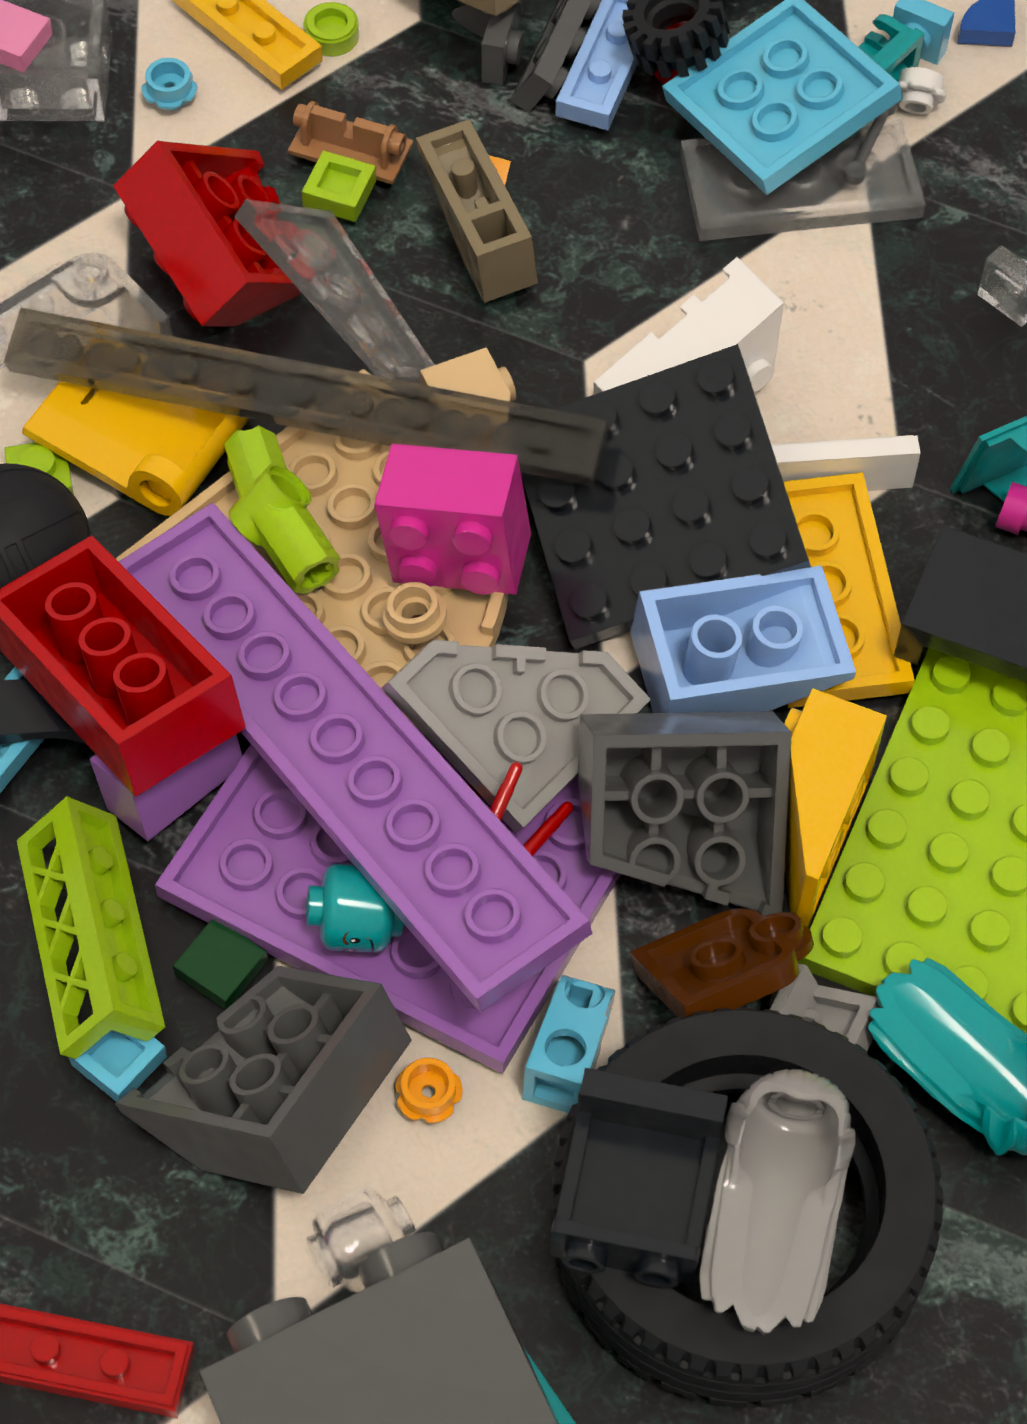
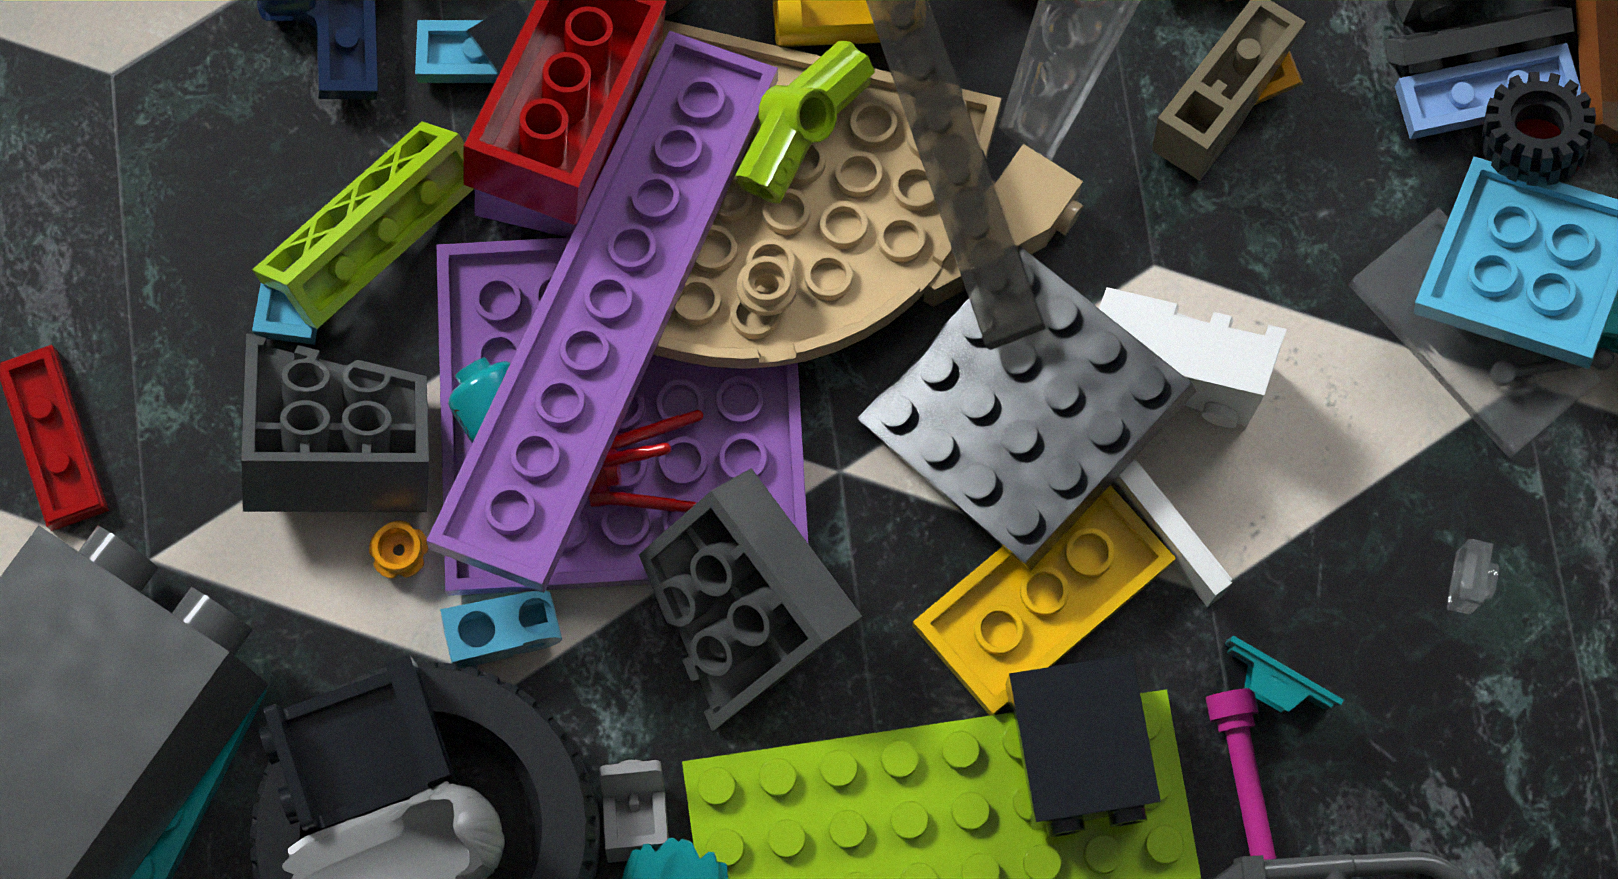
camera: 60 degrees right, 15 degrees up
(220, 963) = (409, 333): dark green tile -> none
(353, 1231) = (245, 574): clear head -> none
(453, 518) = (852, 262): dark pink brick -> none
(508, 708) = (730, 414): light grey plate -> none
(723, 960) = (628, 707): reddish brown plate -> none
(740, 642) = (924, 556): light blue slope -> none
(828, 775) = (825, 696): yellow slope -> none

